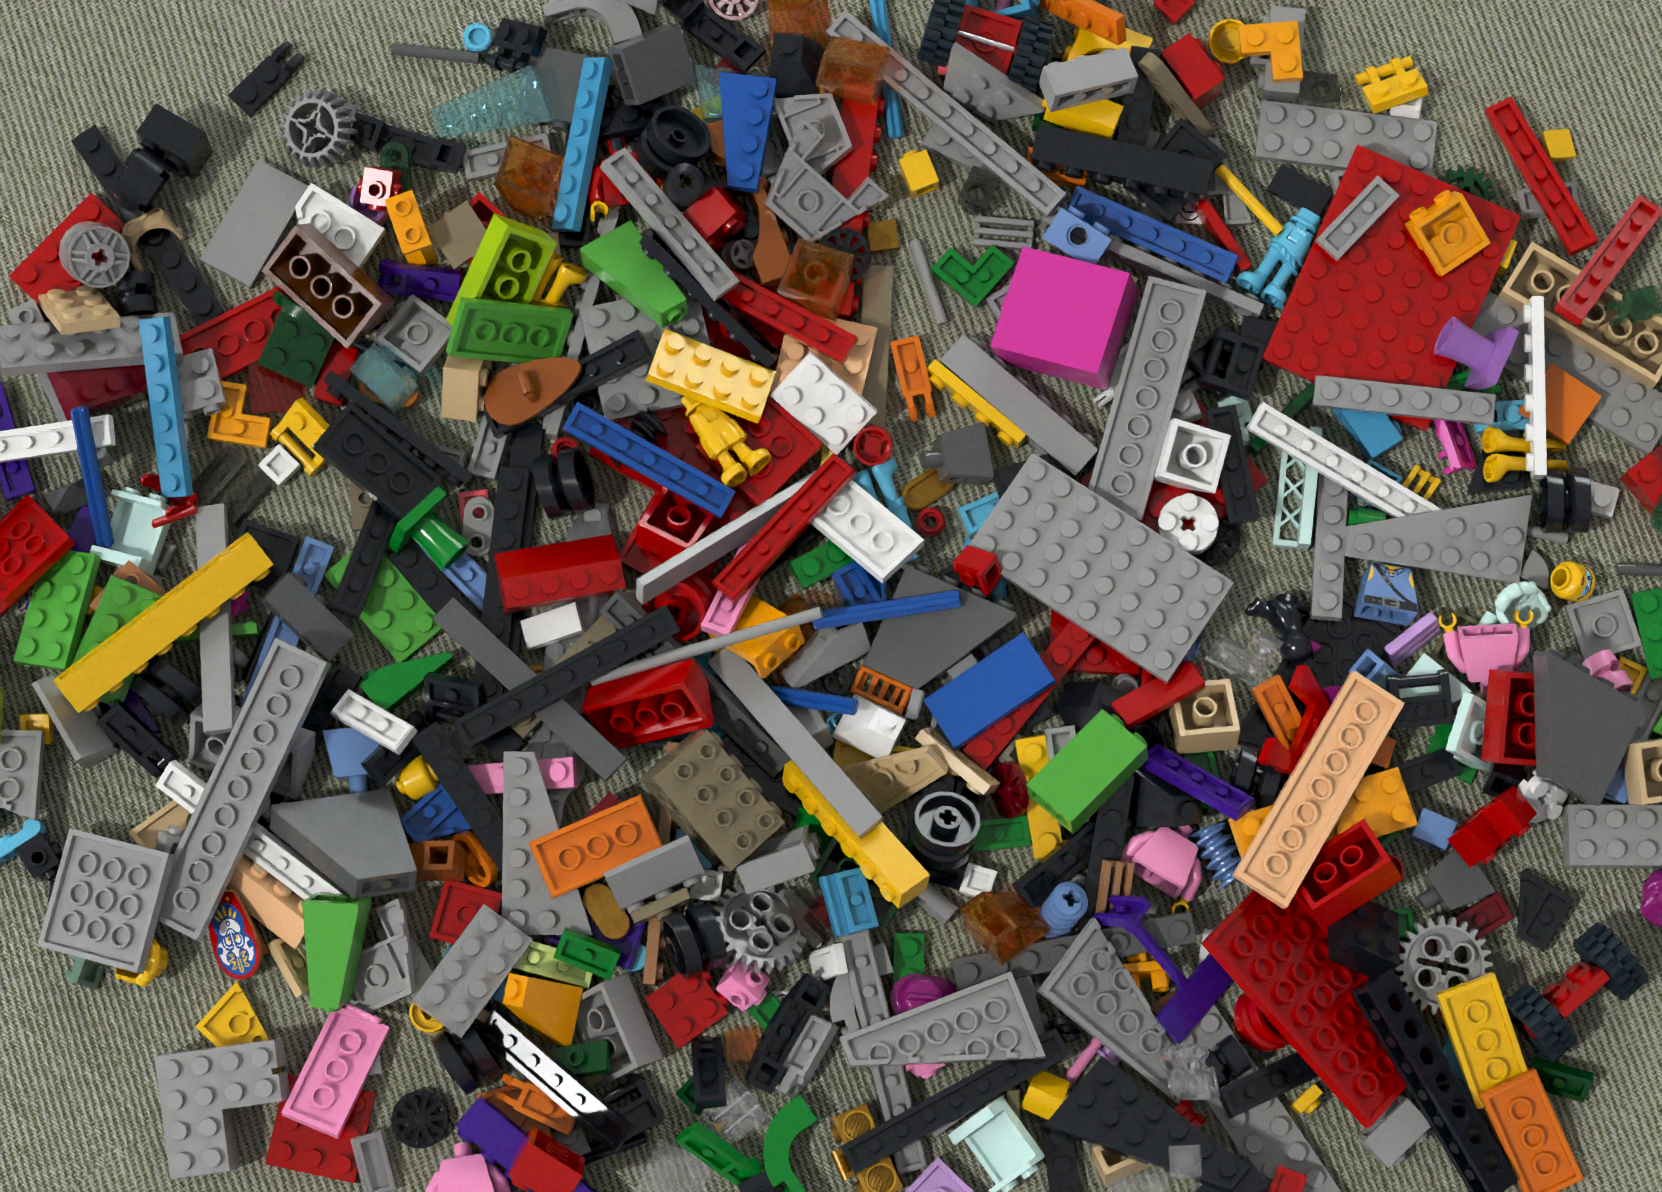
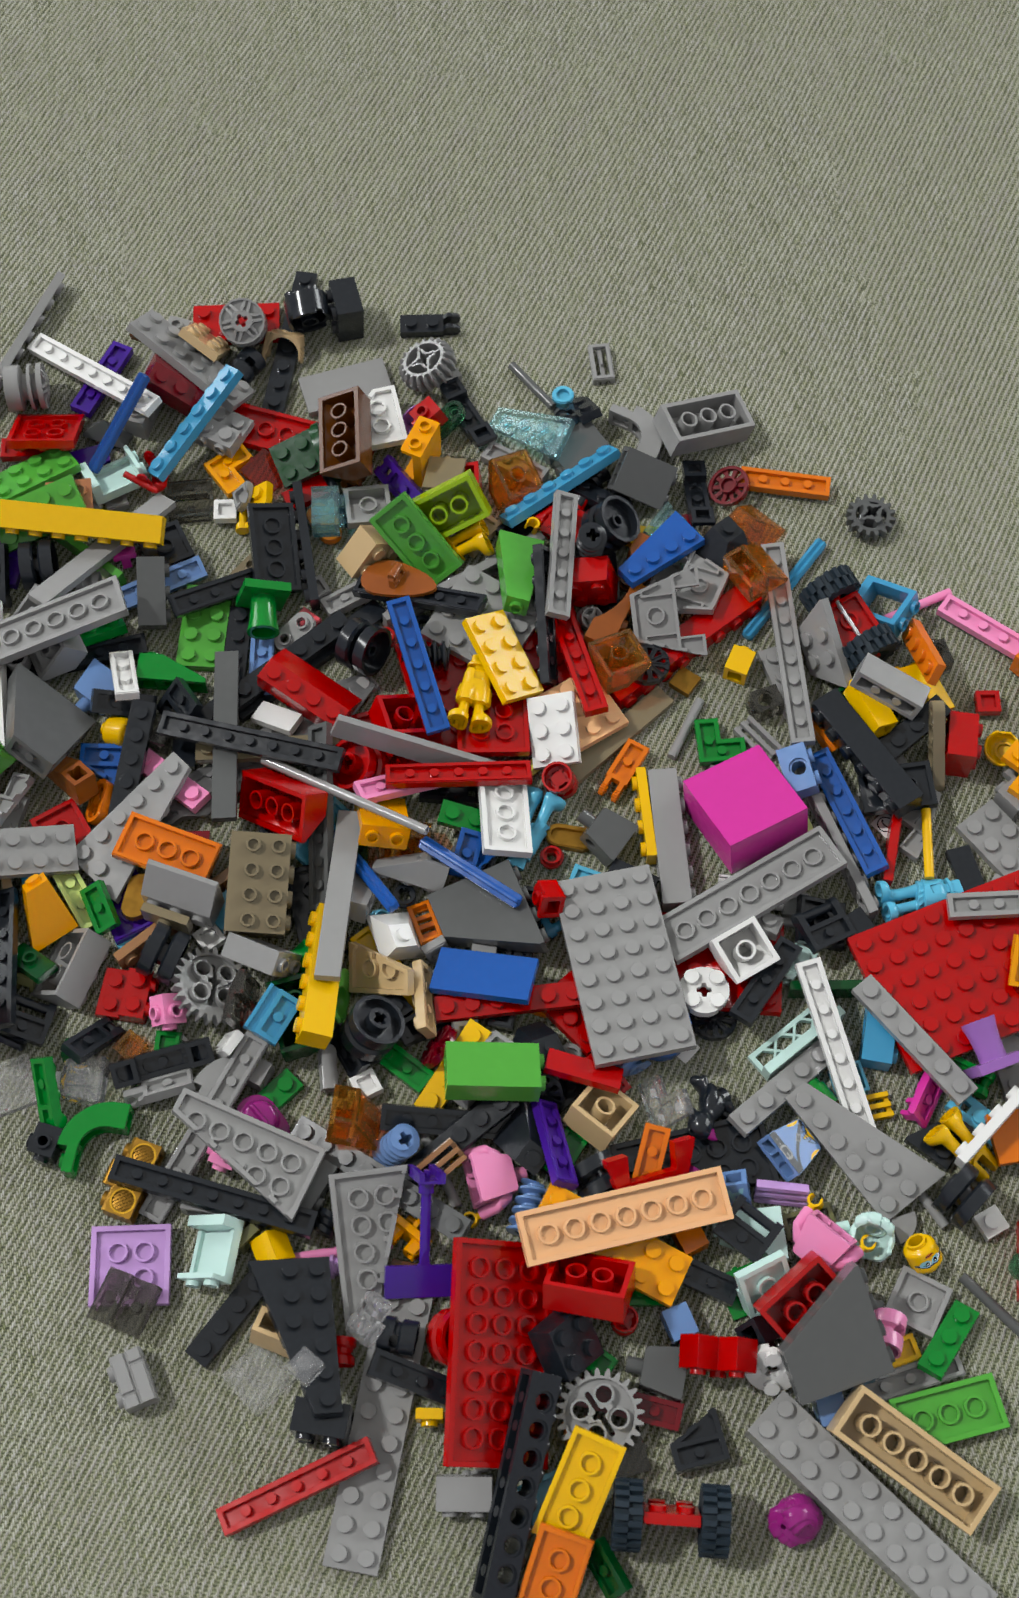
camera: 40 degrees right, 15 degrees down
(285, 436) = (243, 496): none -> light grey tile

